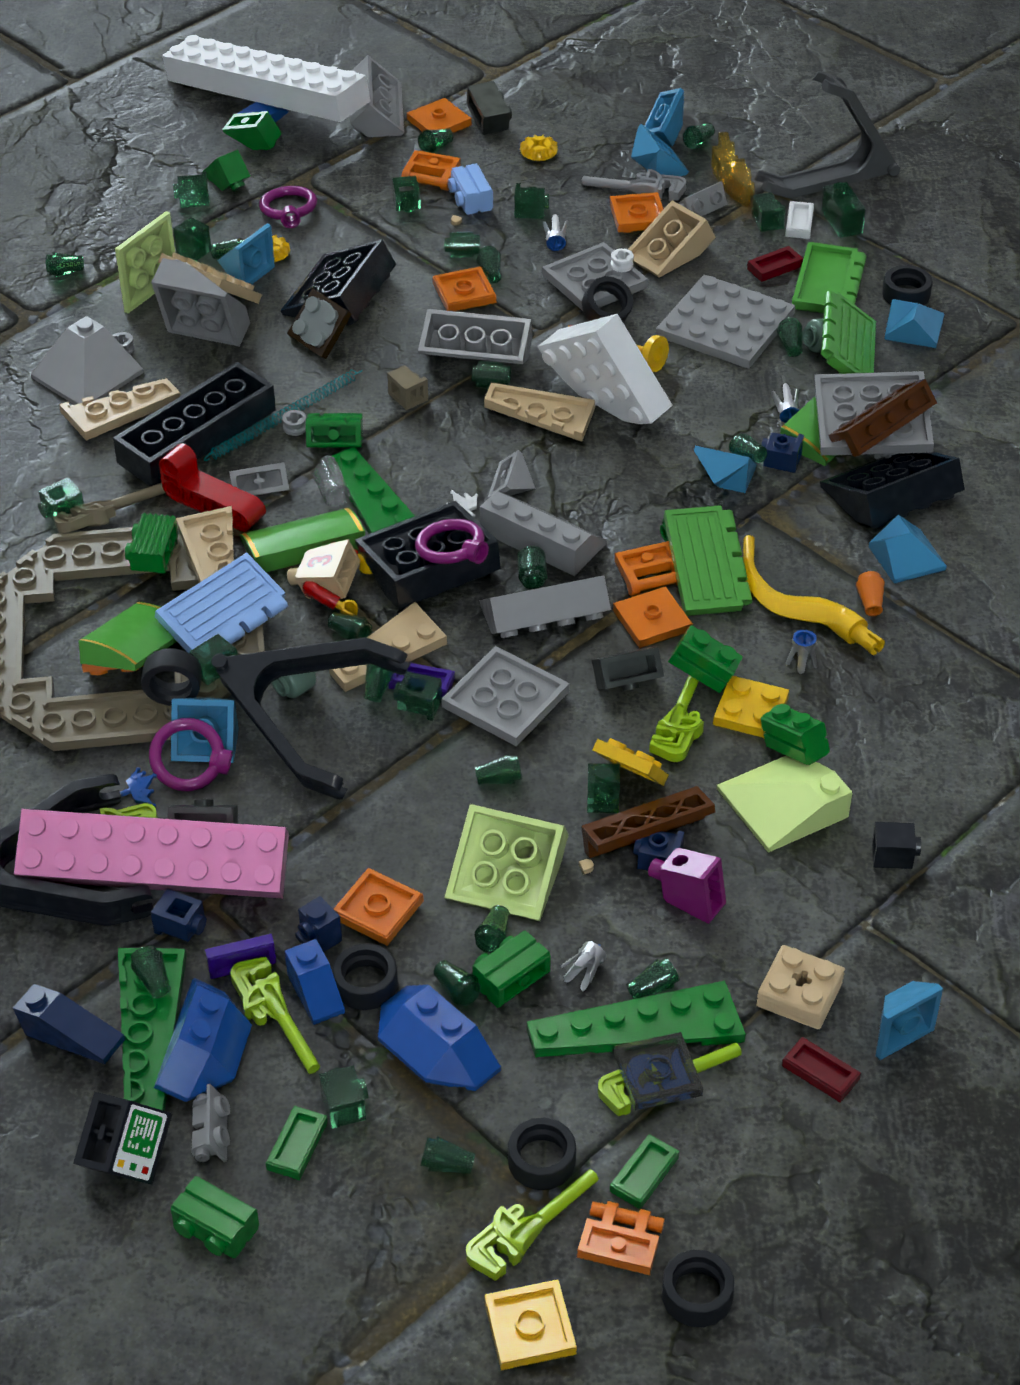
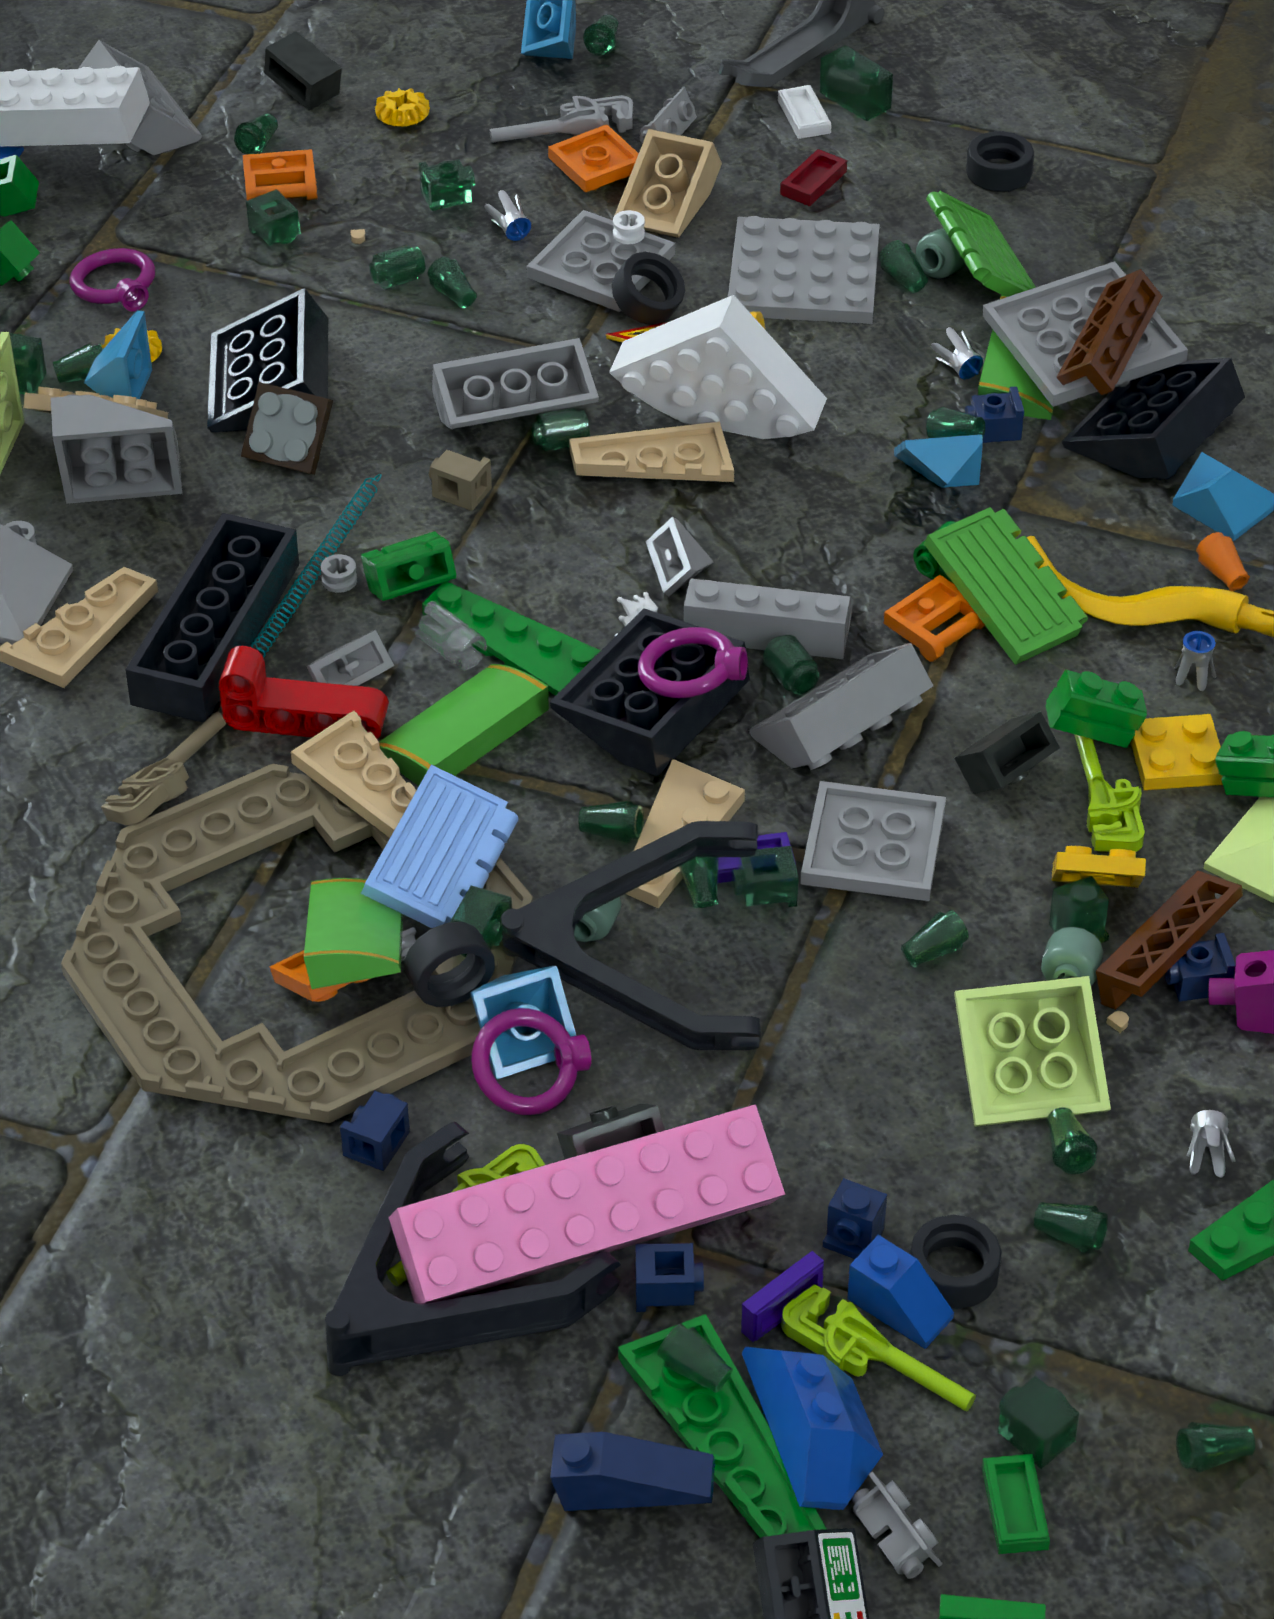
camera: 25 degrees left, 0 degrees up
(59, 498) = (88, 782): clear green brick -> none
(73, 762) = (376, 1130): none -> dark blue brick
(139, 786) = (482, 1128): blue piece -> none
(152, 543) = (280, 796): green brick -> none
(328, 574) = (541, 761): tan torso -> none
(378, 906) = (908, 1165): orange plate -> none
(435, 1039) = (1094, 1301): blue wedge -> none
(439, 115) = (236, 101): orange plate -> none
(464, 289) = (440, 326): orange plate -> none
(471, 189) = (356, 187): light blue brick -> none
(511, 967) = (1127, 1178): green brick -> none
(576, 811) = (1072, 954): none -> sand green head
(652, 617) = (981, 679): orange plate -> none
(656, 154) = (568, 76): dark azure slope -> none
(732, 171) = (672, 70): clear yellow slope -> none
(768, 212) = (762, 112): clear green brick -> none
(826, 270) = (891, 177): bright green hinge -> none
(913, 324) = (1036, 207): dark azure slope -> none

